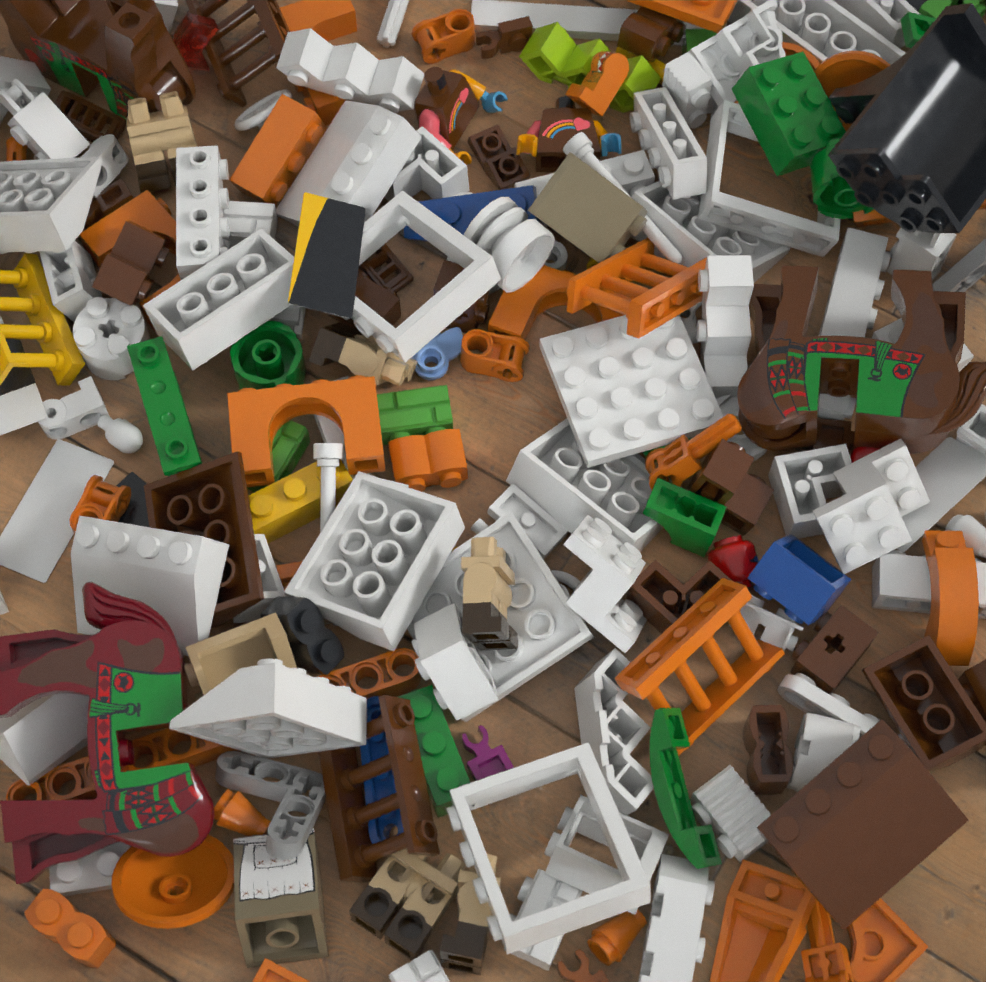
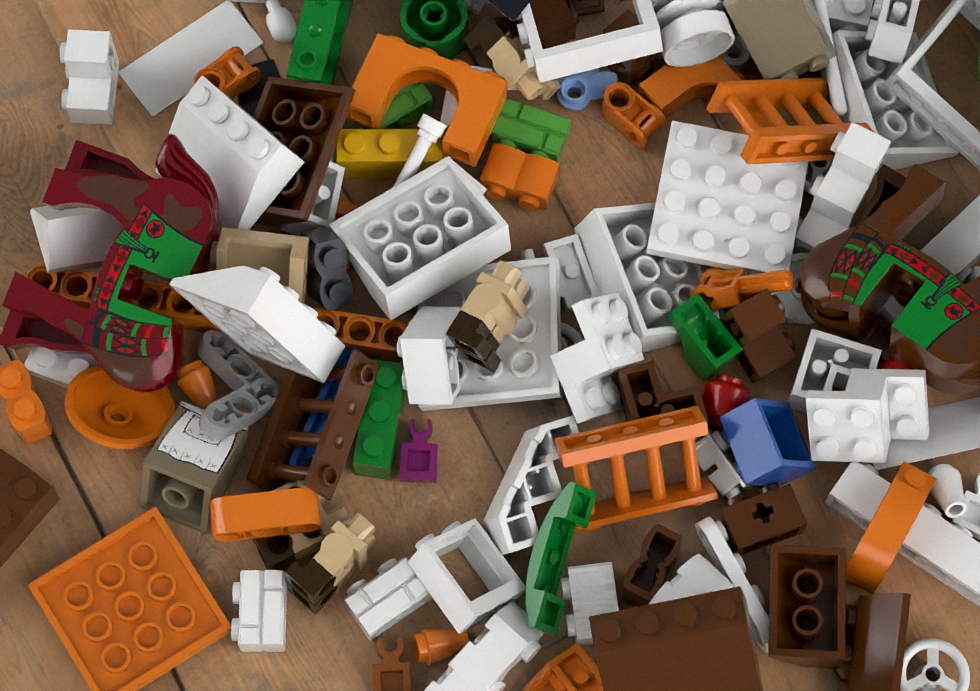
camera: 30 degrees right, 5 degrees up
(383, 905) = (264, 514): none -> orange beam
(571, 915) = (401, 599): white window -> none

